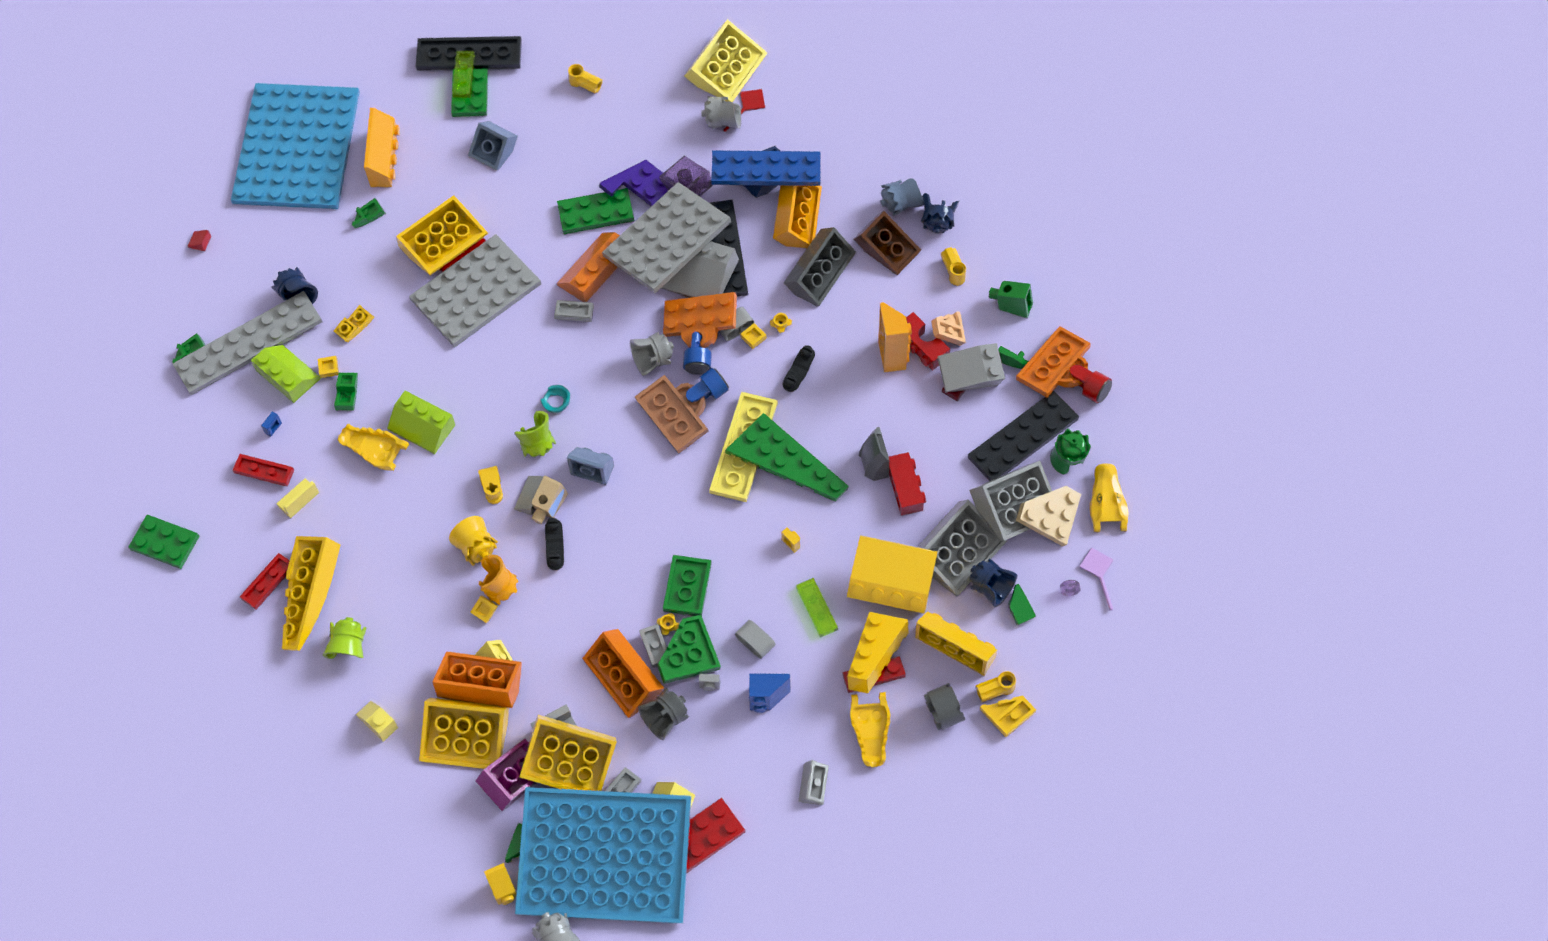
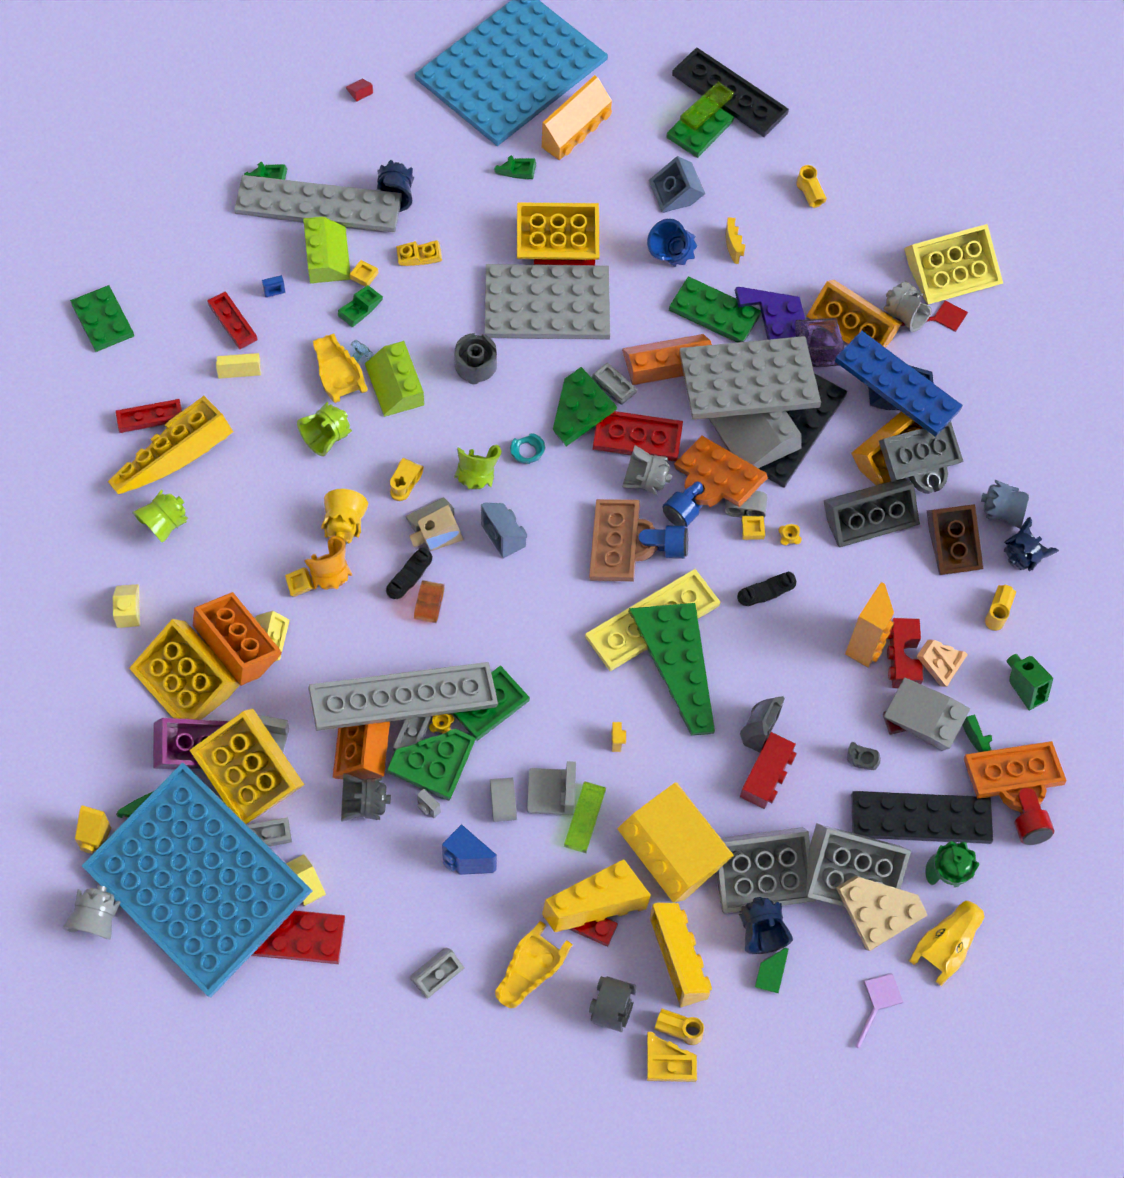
camera: 35 degrees right, 0 degrees up
(377, 420) = (361, 350): none -> clear light blue plant
(404, 493) = (324, 428): none -> lime hat
(464, 364) = (475, 358): none -> dark grey brick
(527, 185) = (671, 242): none -> blue hat
(566, 155) = (734, 241): none -> yellow slope
(566, 343) = (580, 407): none -> green plate
(585, 551) = (429, 601): none -> clear orange beam
(614, 335) = (653, 434): none -> red plate
(631, 625) = (402, 696): none -> light grey plate
(693, 143) = (853, 314): none -> light orange slope
(782, 606) = (552, 790): none -> light grey bracket
(821, 206) = (921, 456): none -> dark grey plate
(955, 427) = (863, 757): none -> dark grey hair
(1070, 588) = (835, 993): clear purple tile -> none

